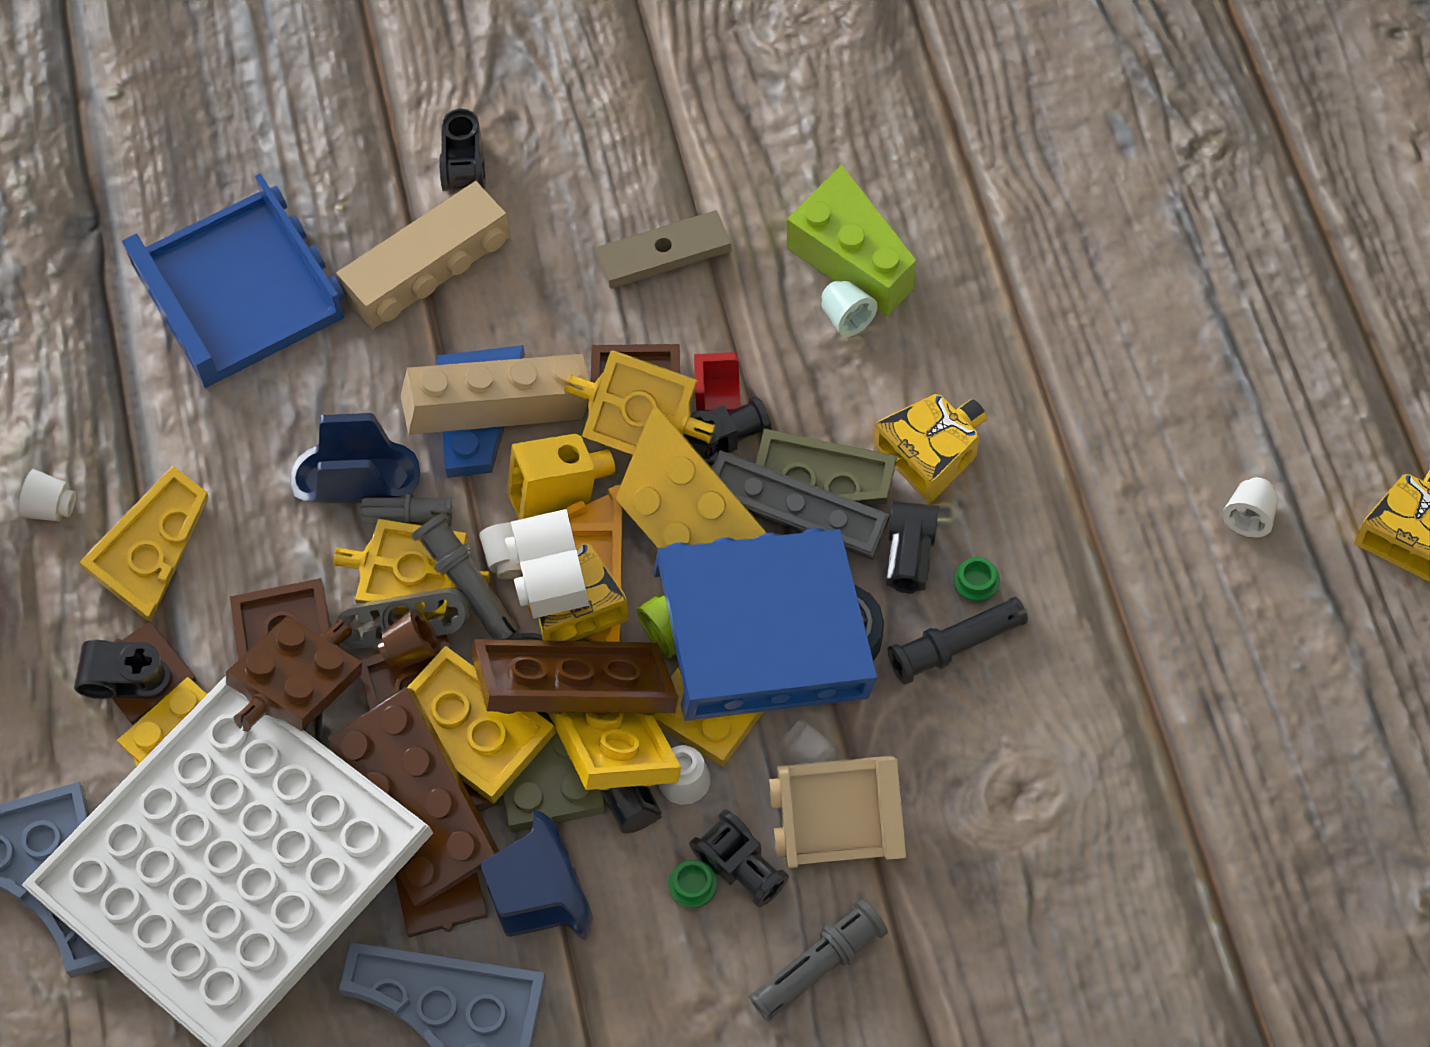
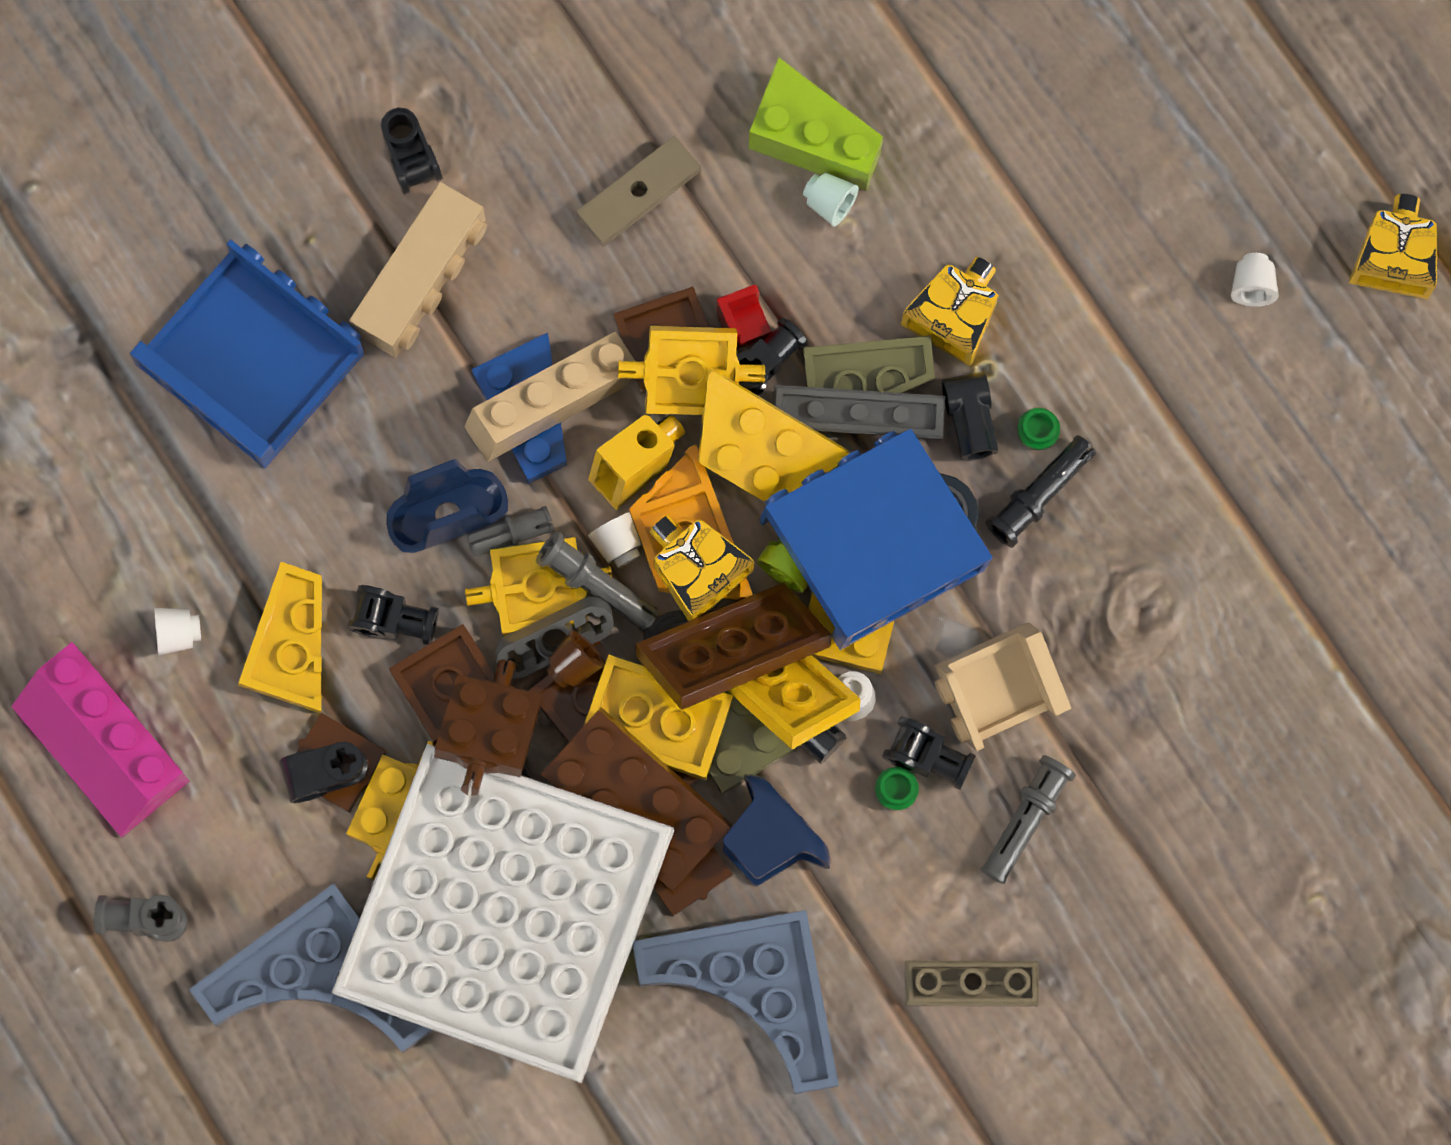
camera: 25 degrees left, 15 degrees up
(254, 549) = (391, 616): none -> black connector
(548, 563) = (678, 555): white brick -> none

